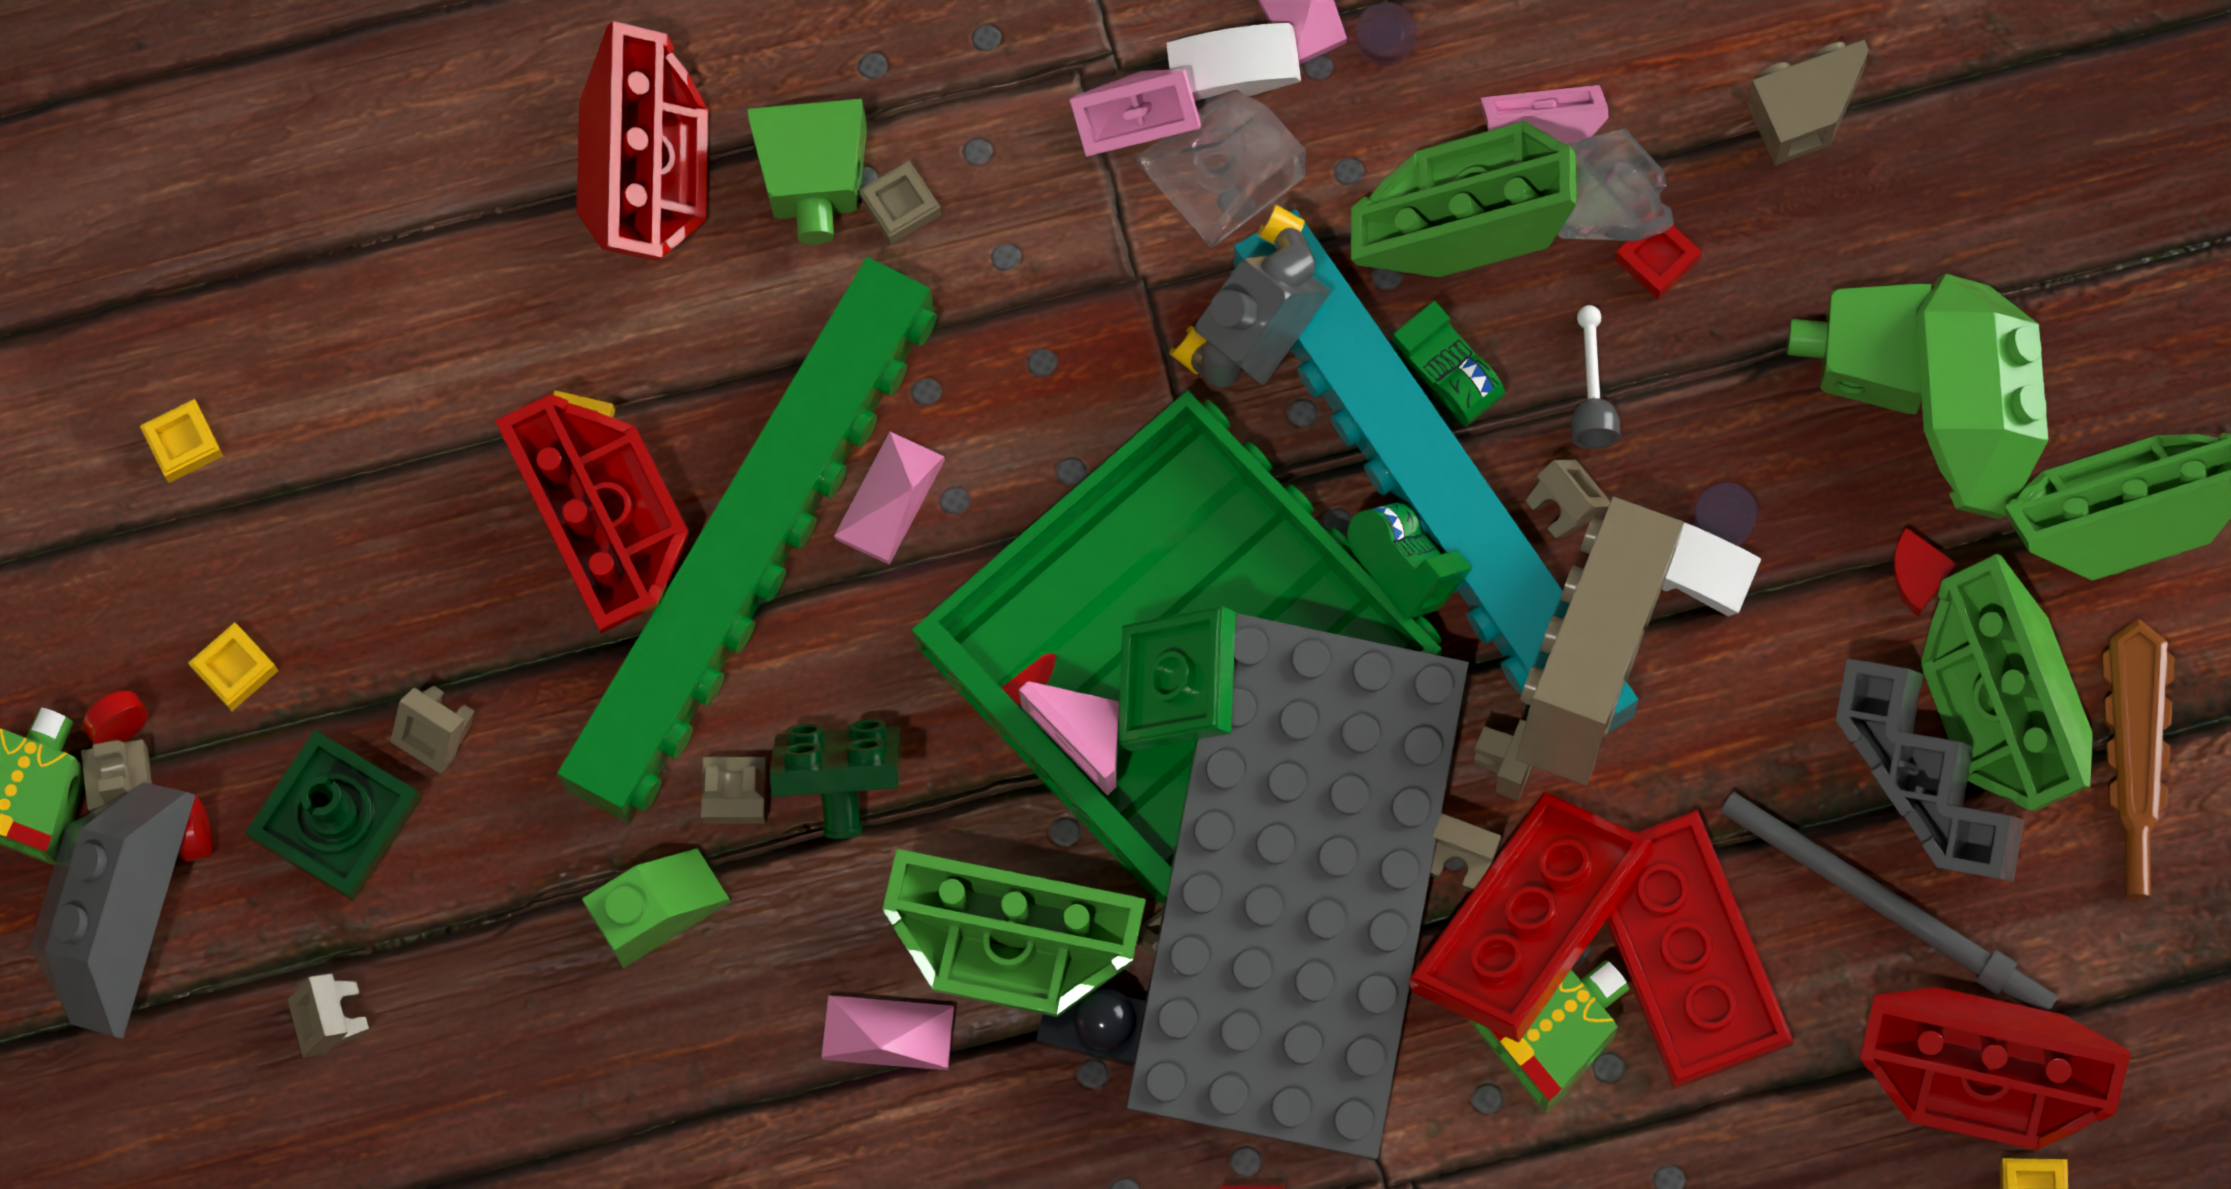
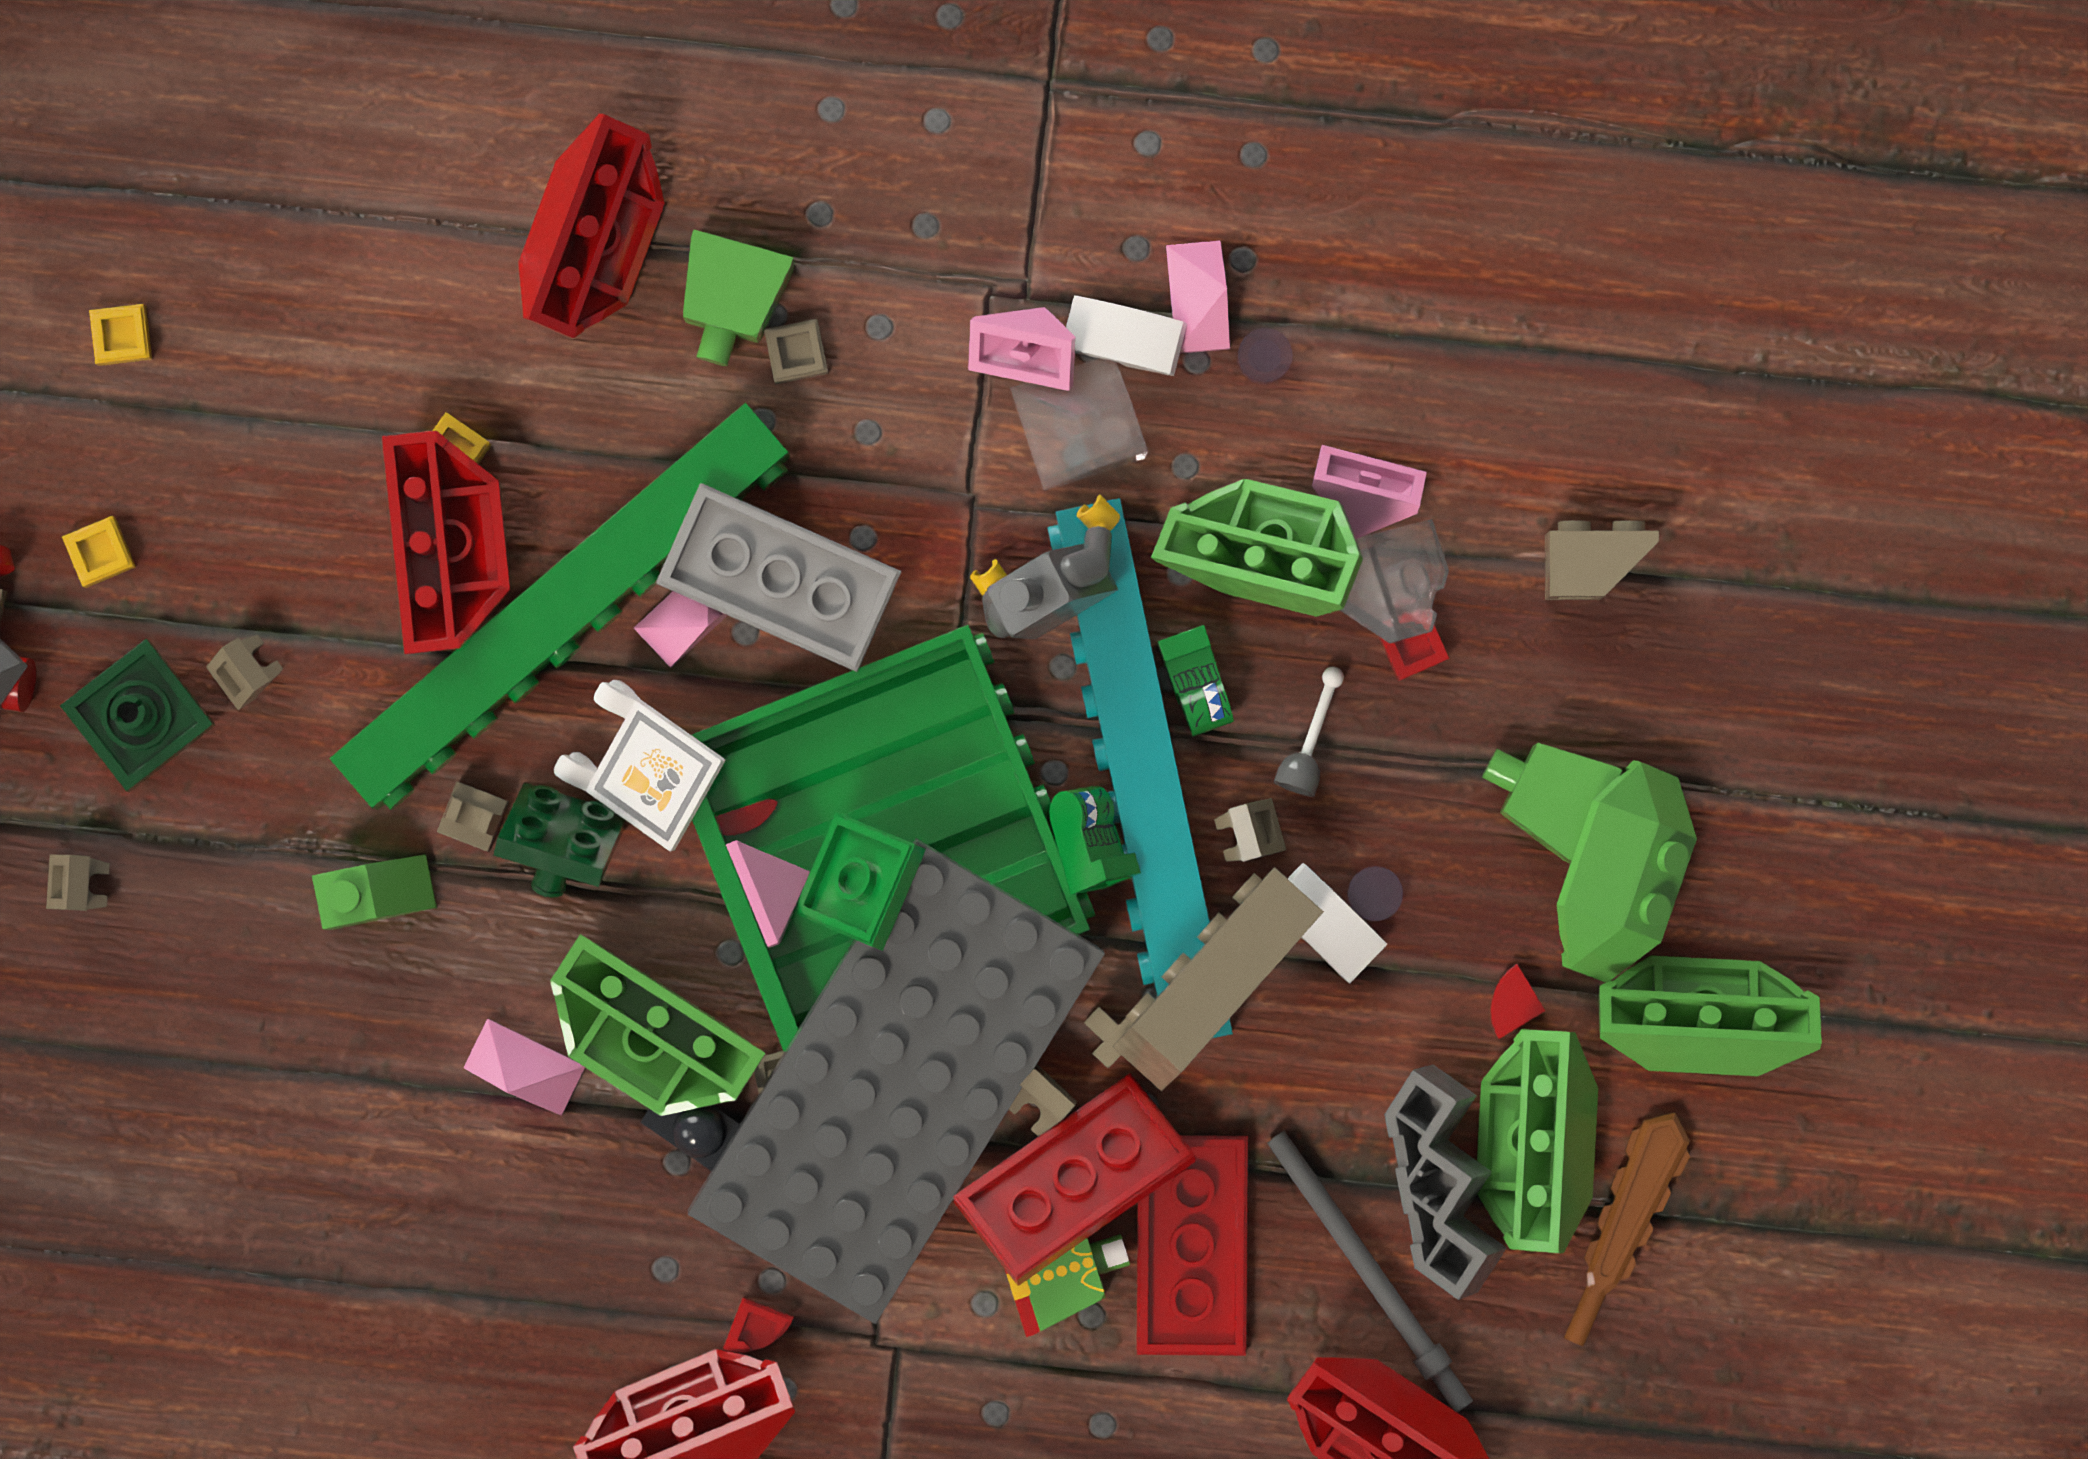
camera: 15 degrees right, 15 degrees up
(909, 661) = (651, 770): none -> white flag
(969, 412) = (778, 577): none -> light grey tile

